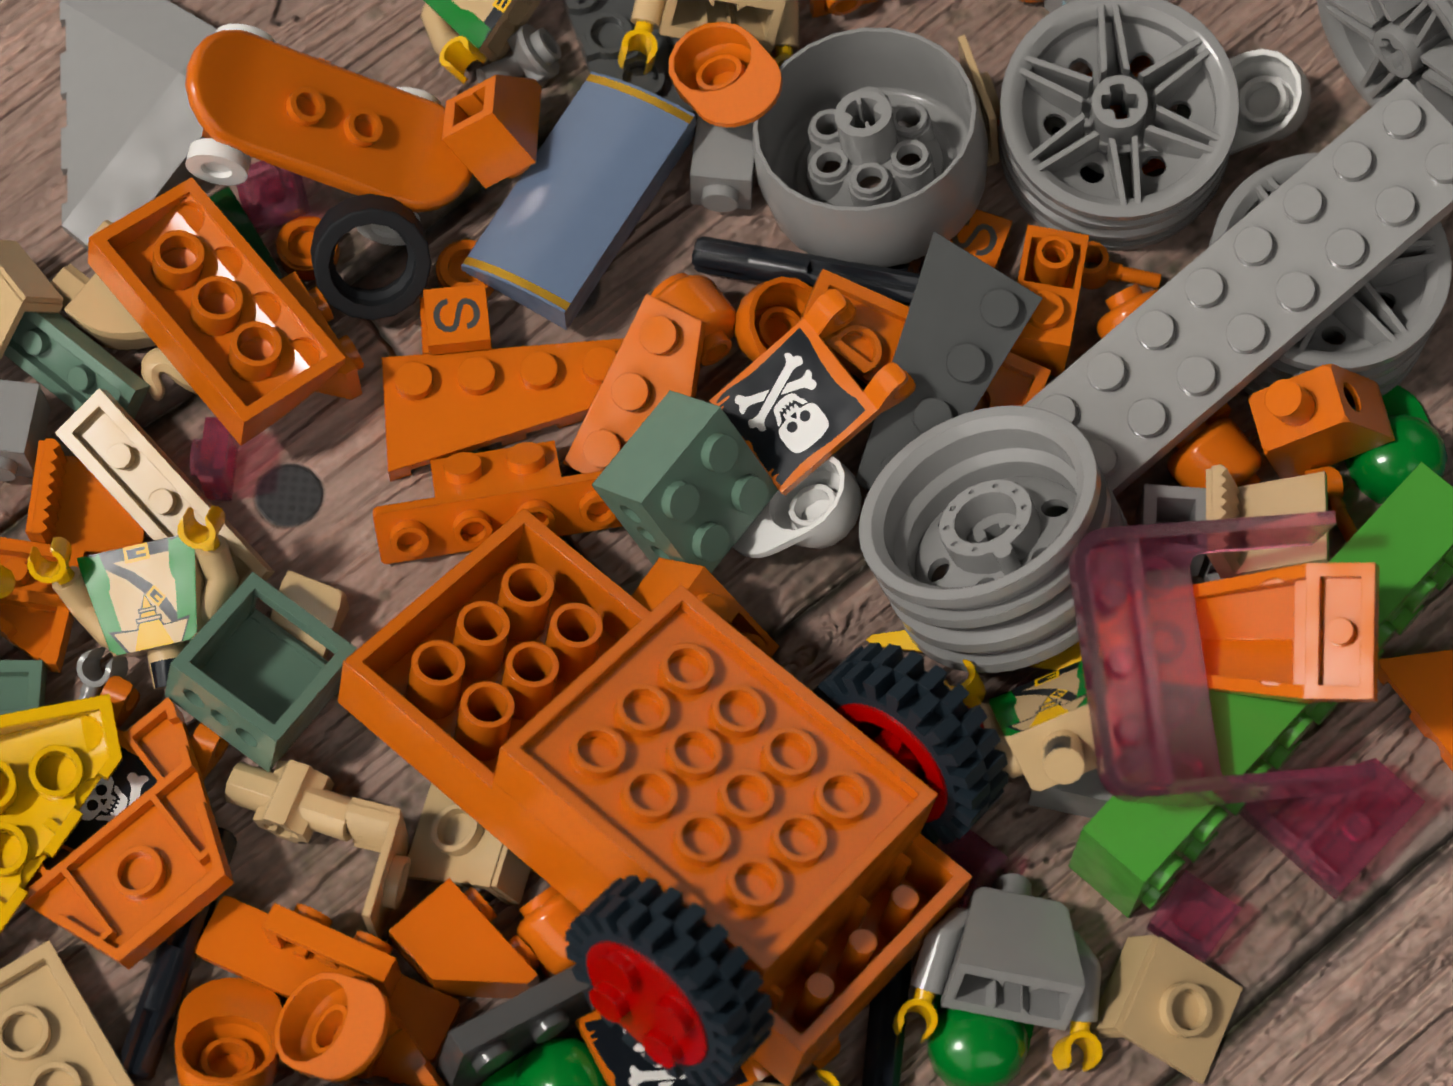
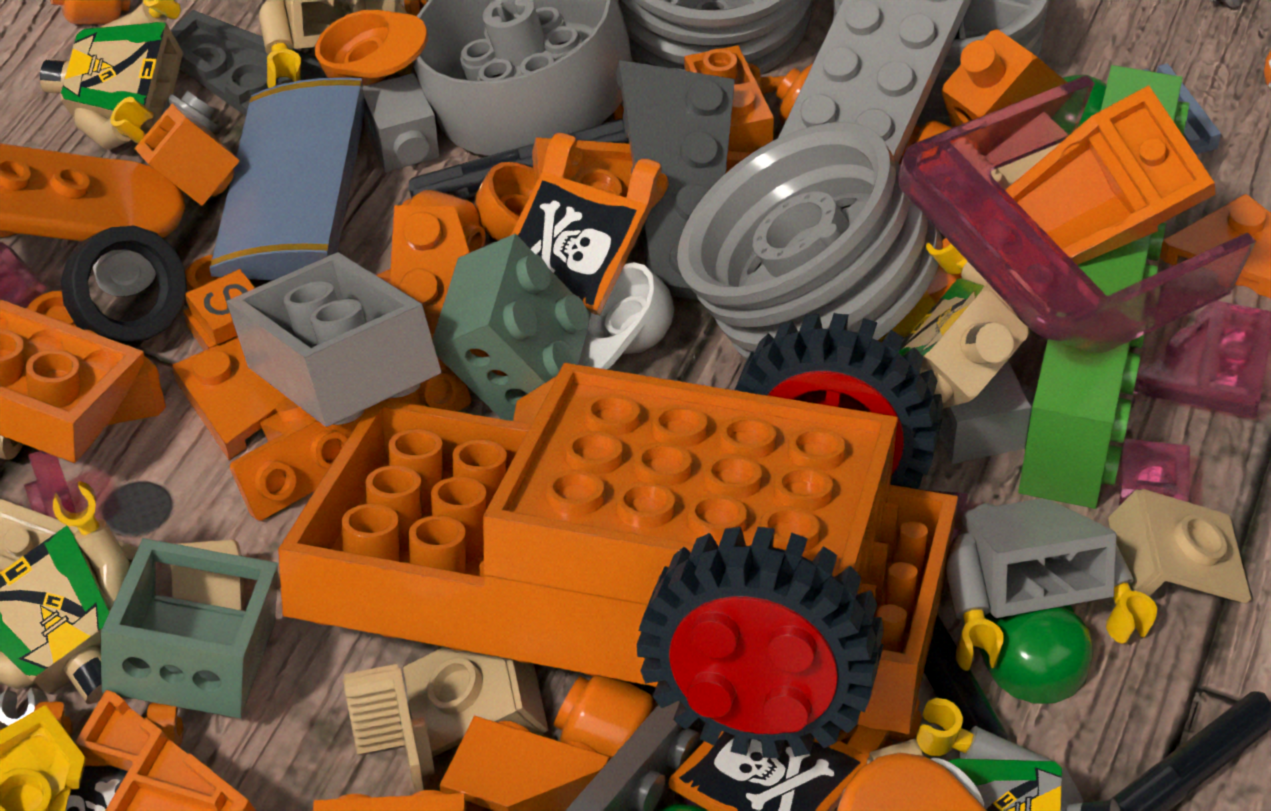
camera: 25 degrees left, 20 degrees down
(289, 800) = (277, 734): tan axle -> none
(512, 432) = (335, 338): none -> light grey brick

